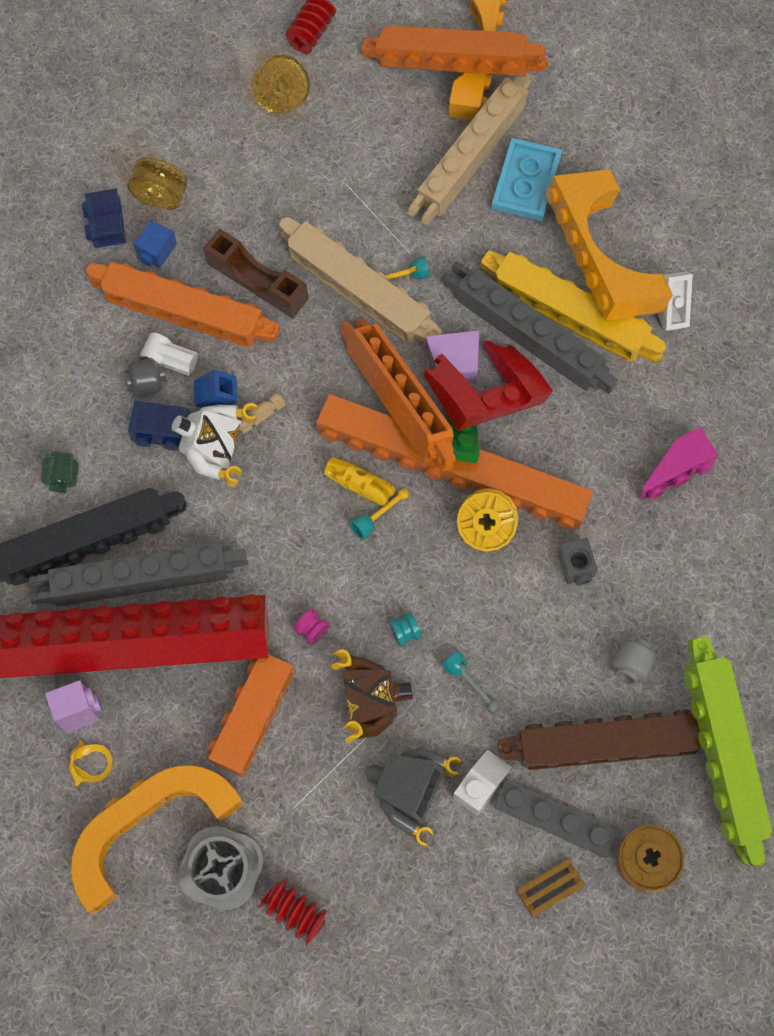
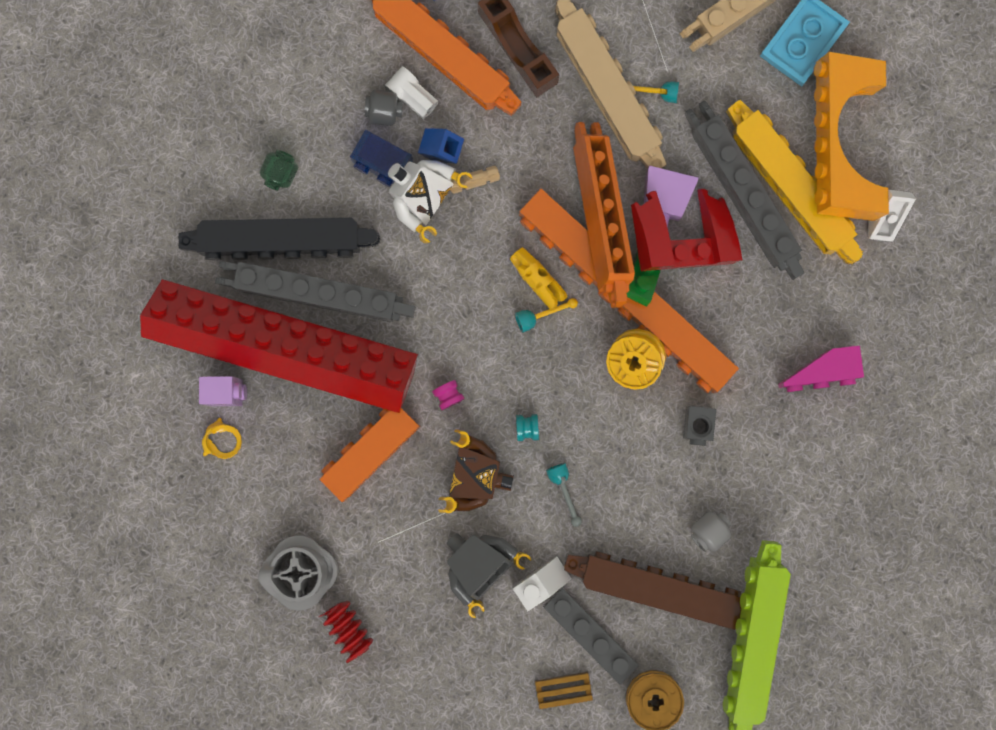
camera: 20 degrees right, 15 degrees up
(124, 813) = (190, 531): light orange arch -> none

